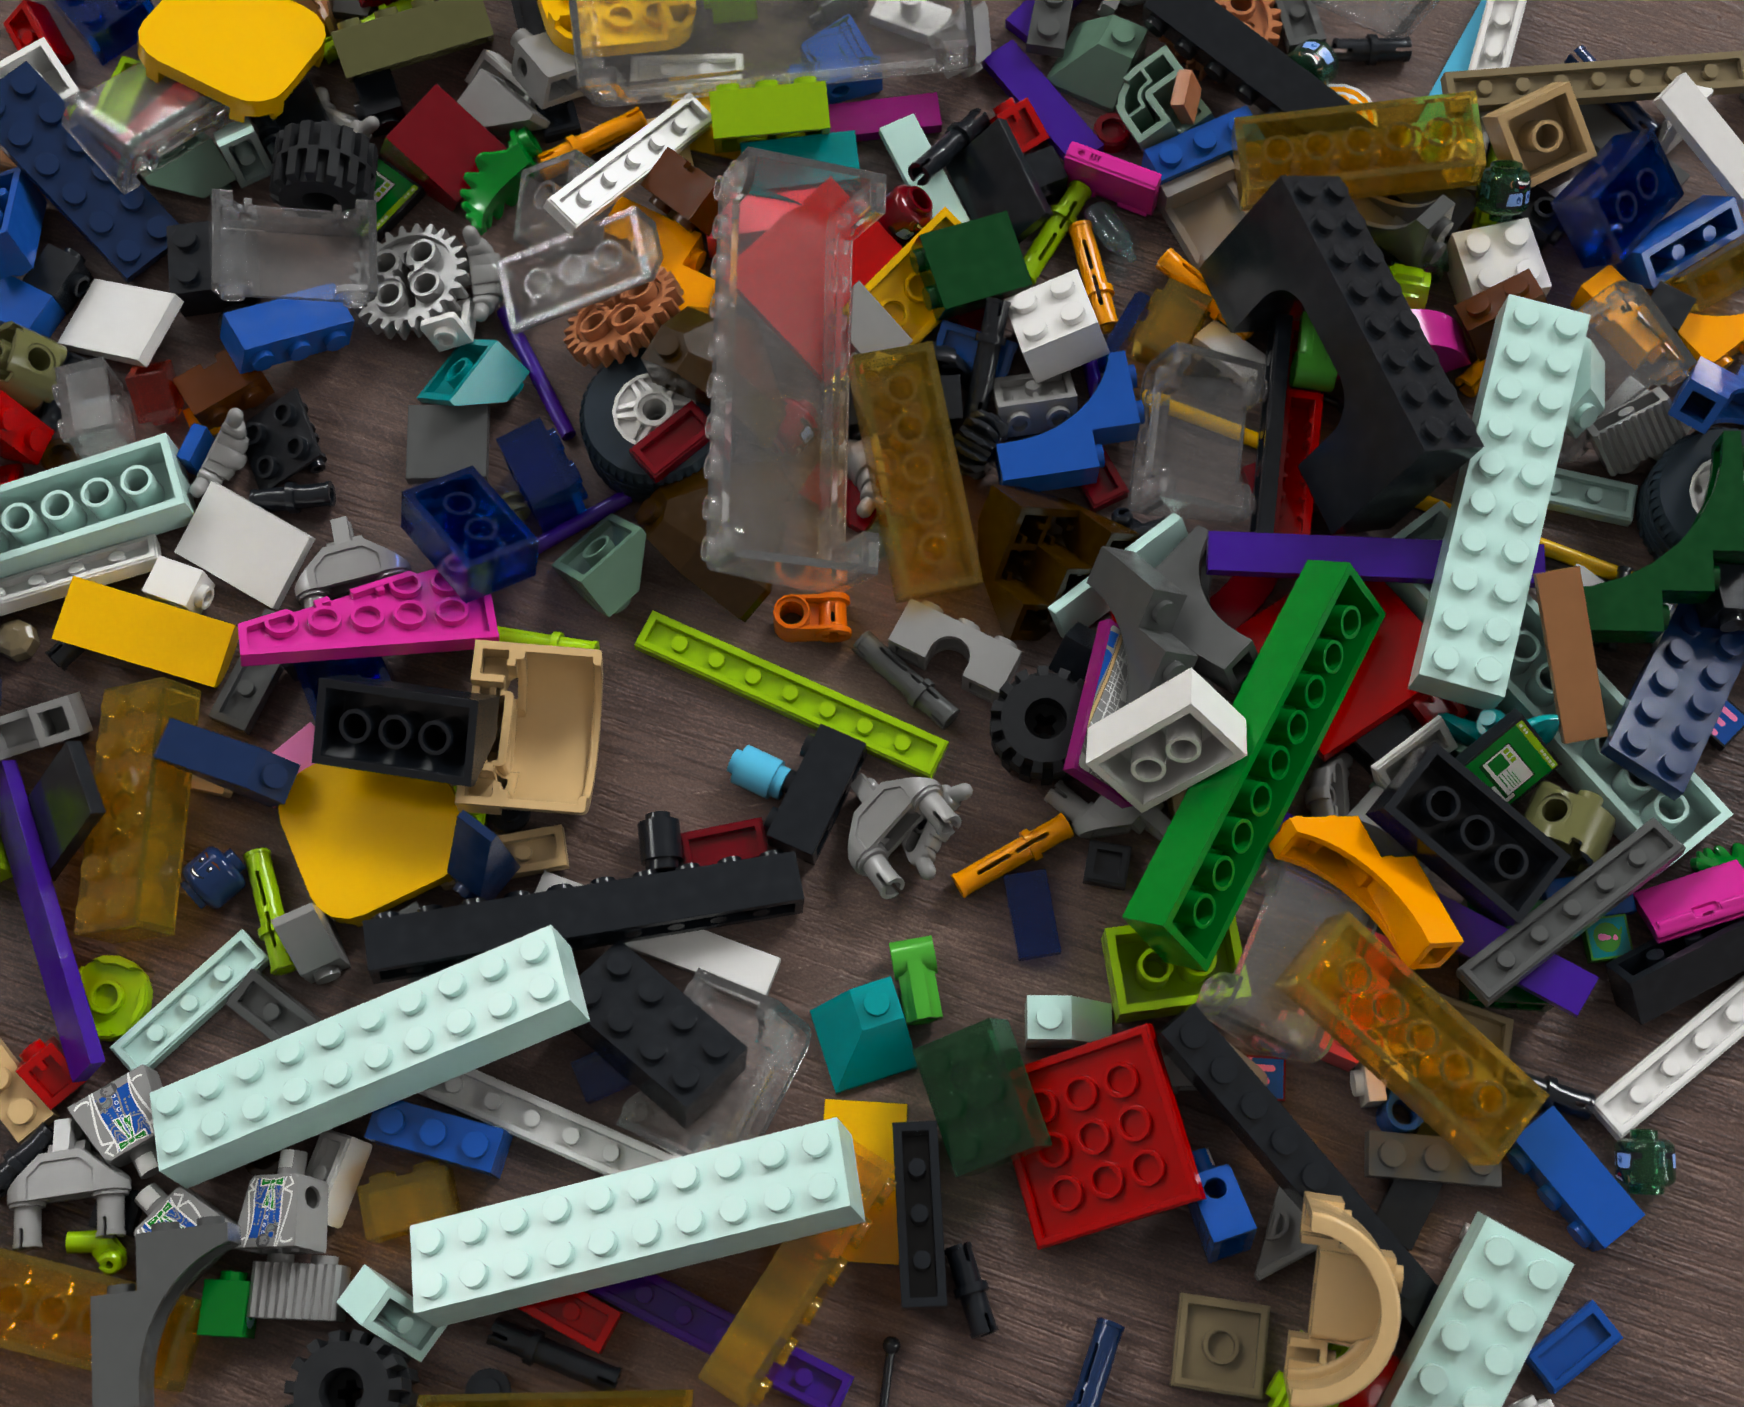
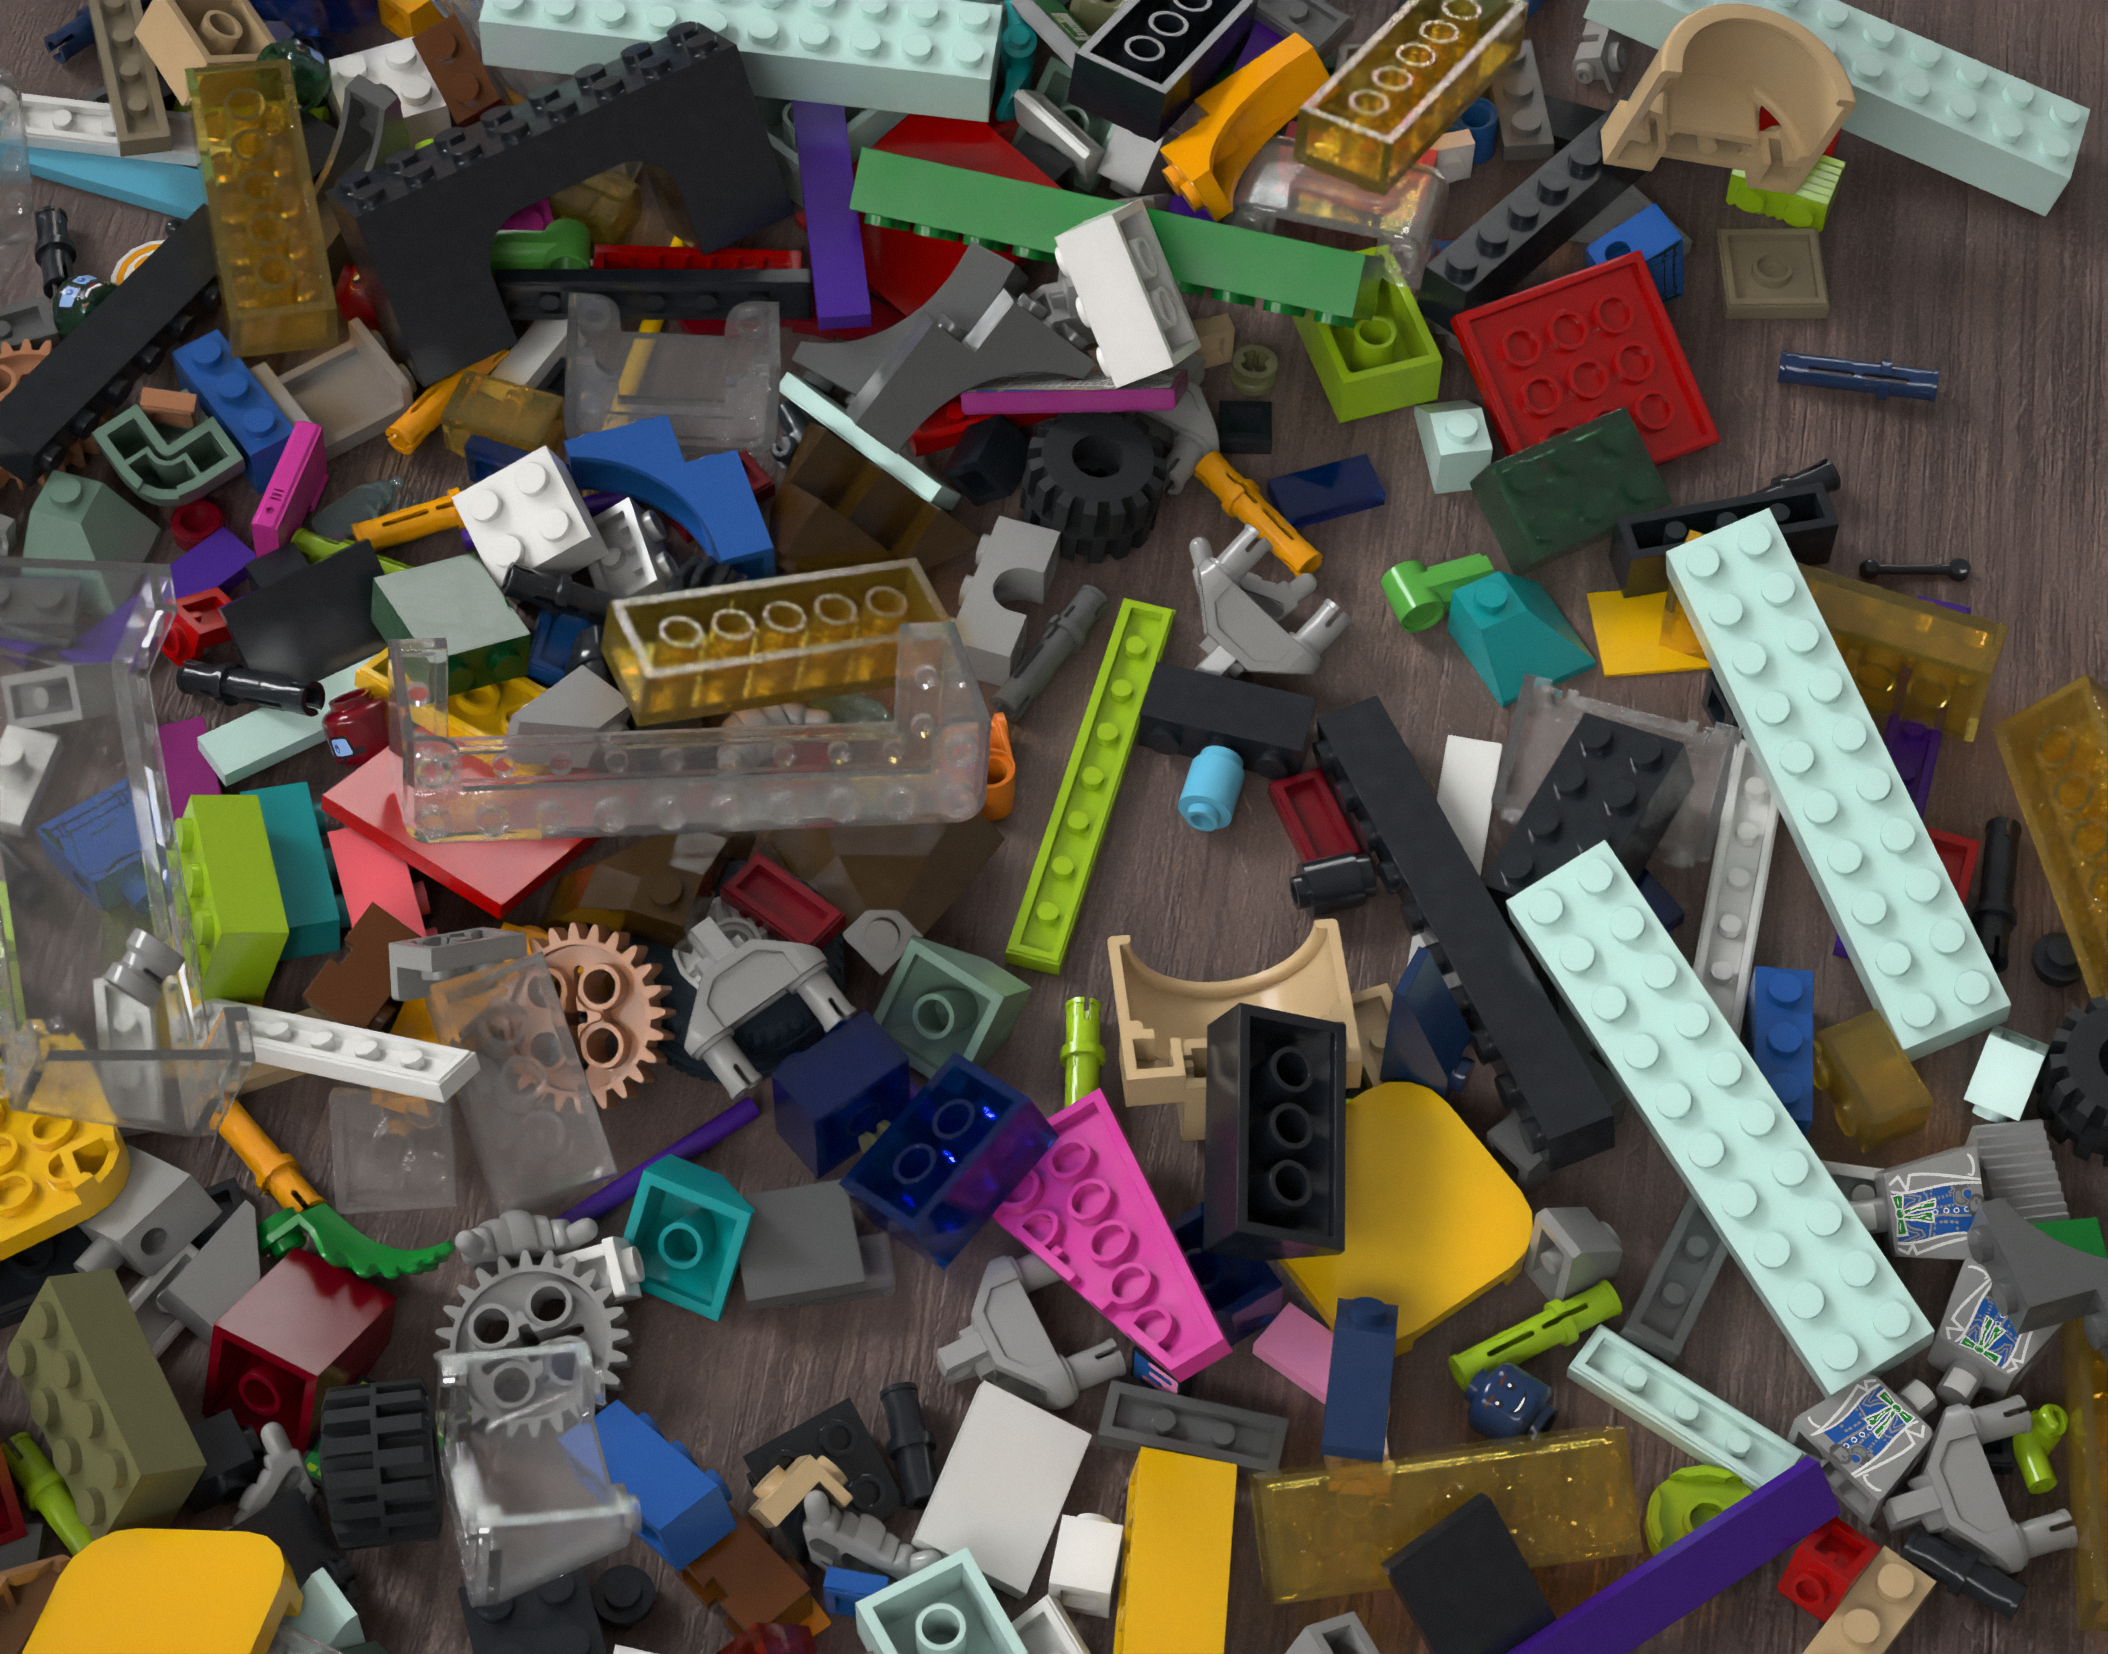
camera: 105 degrees left, 15 degrees down
(260, 413) = (783, 1490): none -> tan bracket
(607, 403) = (740, 983): none -> light grey connector
(667, 229) = (448, 955): none -> light grey bracket
(696, 50) = (144, 968): none -> light grey wheel

